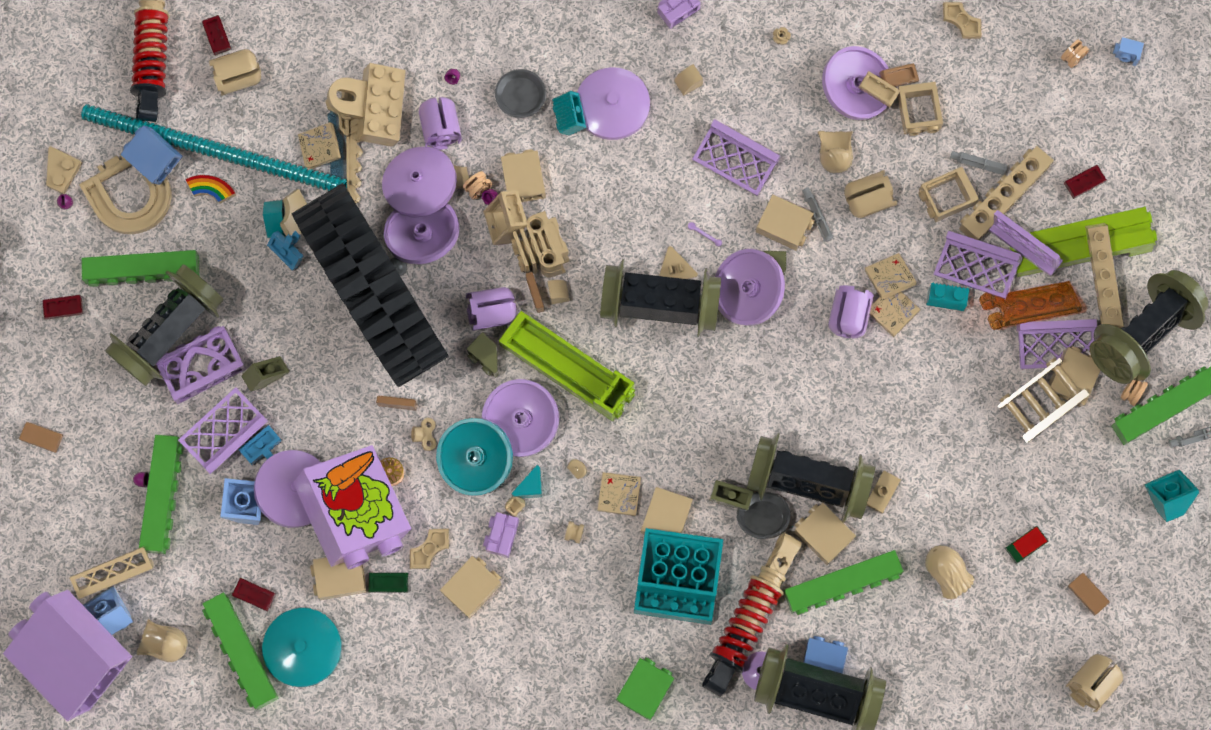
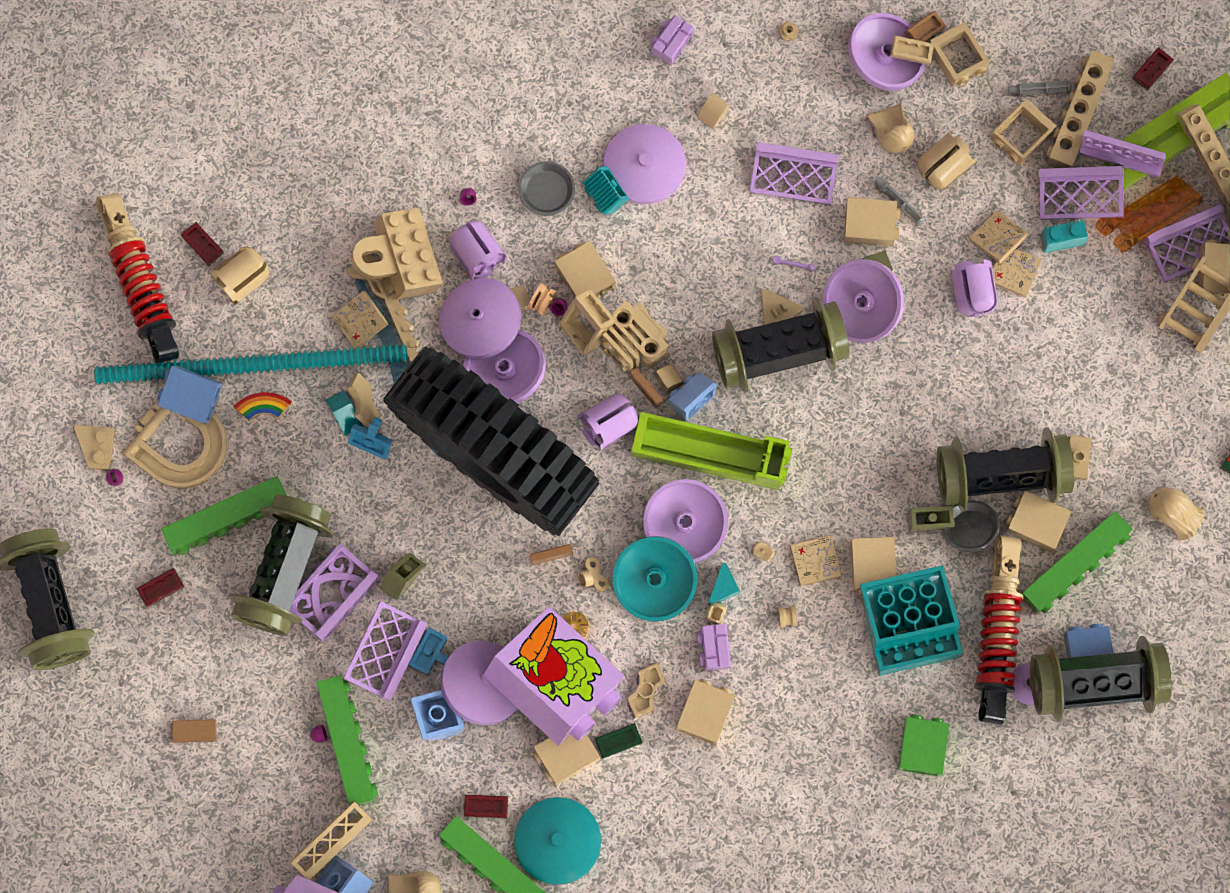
camera: 25 degrees left, 0 degrees up
(484, 352) = (621, 469): olive slope -> none
(570, 314) = (692, 396): none -> light blue slope

